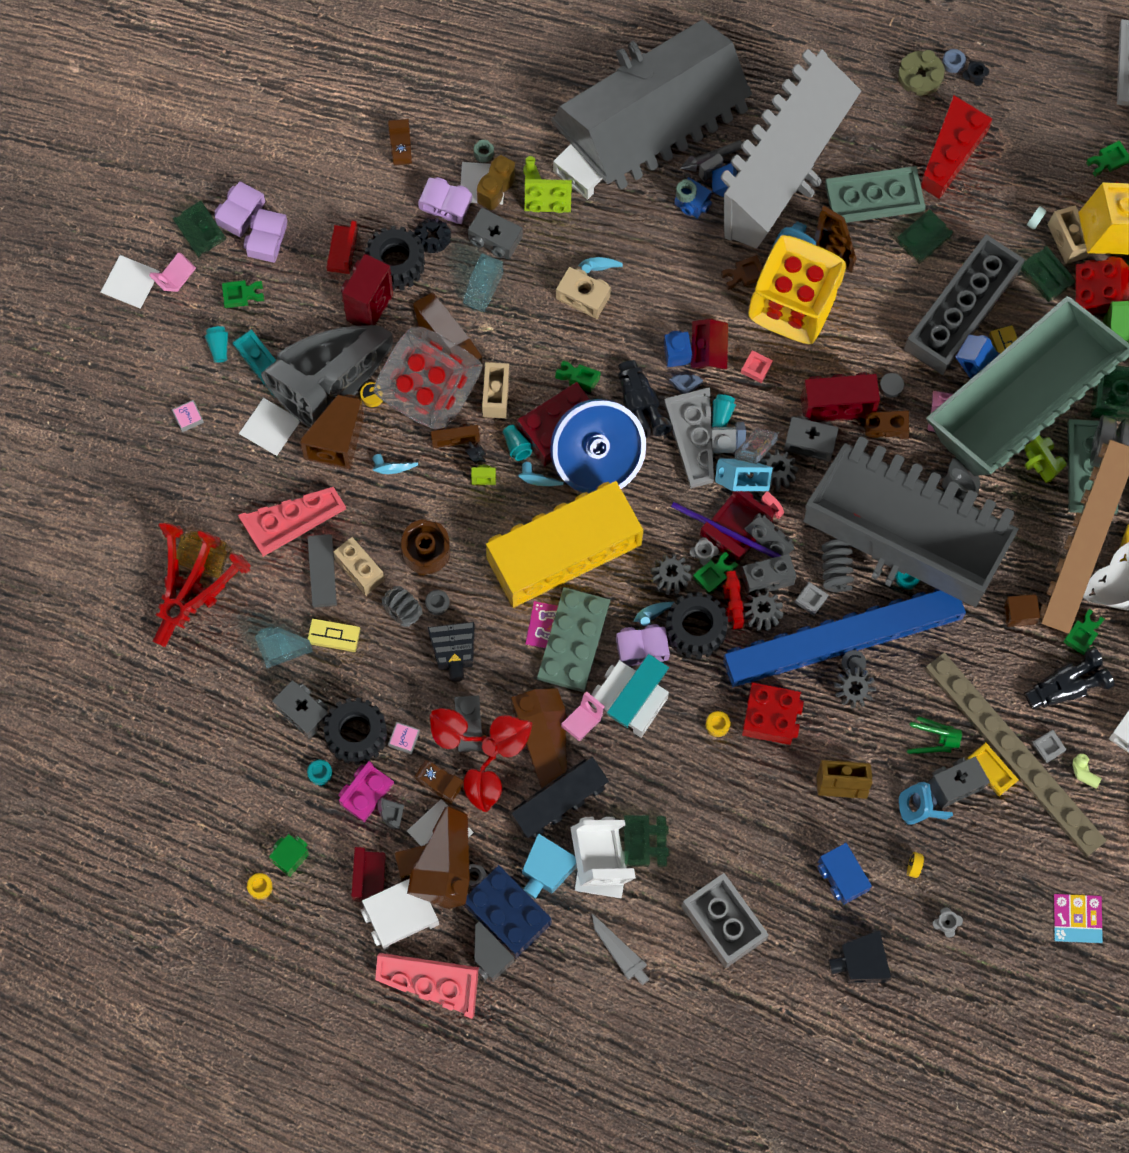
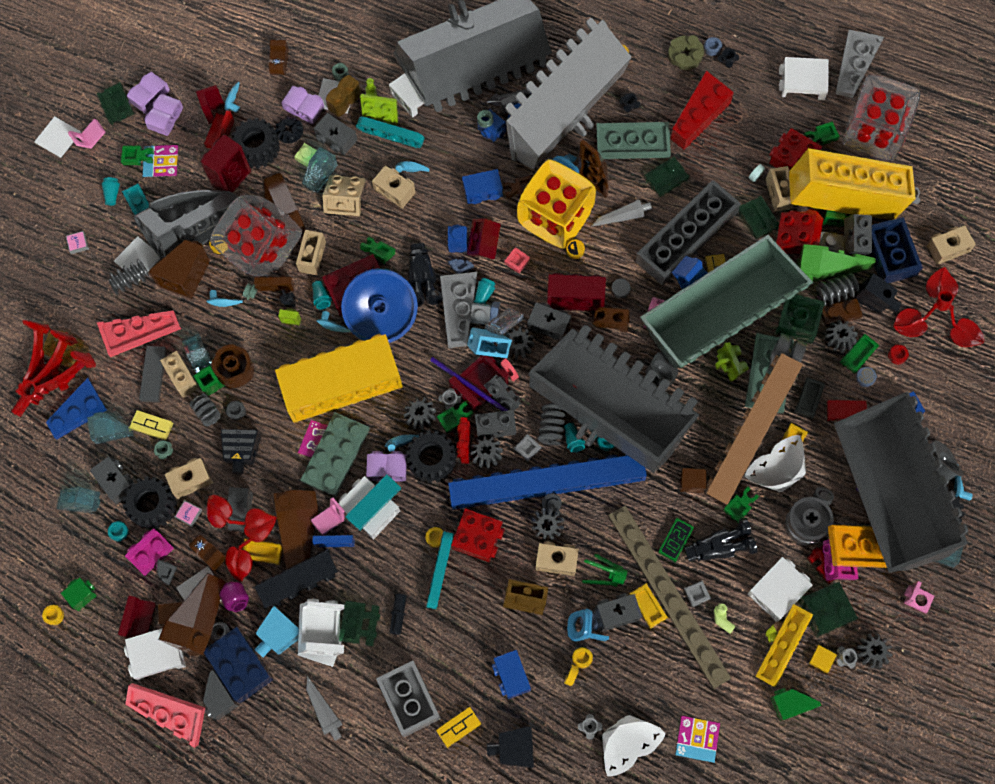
camera: 15 degrees right, 0 degrees up
(234, 629) = (75, 410): none -> blue wing
(262, 740) = (79, 500): none -> clear light blue slope
(266, 450) = (128, 276): none -> dark grey piece
(278, 297) = (164, 161): none -> sticker
(324, 210) = (209, 100): none -> dark red panel
(348, 204) = (230, 99): none -> medium azure bar
(356, 657) = (158, 449): none -> sand green plate
(375, 536) = (197, 352): none -> clear light blue slope
(392, 706) = (200, 478): none -> tan brick
(398, 568) = (208, 381): none -> green brick
(425, 450) = (250, 291): none -> sand green plate
(462, 265) = (305, 154): none -> yellowish green plate
(484, 830) = (234, 596): none -> magenta head
(511, 770) = (264, 552): none -> yellow tile
(521, 311) = (343, 195): none -> tan bracket
(564, 222) = (390, 132): none -> teal beam
(594, 746) = (334, 541): none -> blue tile
(690, 822) = (397, 614): none -> black axle
(697, 278) = (482, 186): none -> blue brick
(732, 762) = (439, 570): none -> teal beam
(789, 946) = (458, 727): none -> yellow tile
(826, 343) = (575, 249): none -> yellow tile
(859, 734) = (546, 564): none -> tan brick
(864, 140) = (629, 97): none -> black plate
(866, 584) = (573, 443): none -> teal cone
(883, 288) = (631, 211): none -> light grey bar
(924, 842) = (582, 657): none -> yellow tile
(994, 933) = (626, 741): none -> white piece
(1012, 686) = (676, 540): none -> tile
(1076, 87) = (804, 76): none -> white panel
(1076, 184) = (791, 149): none -> red brick

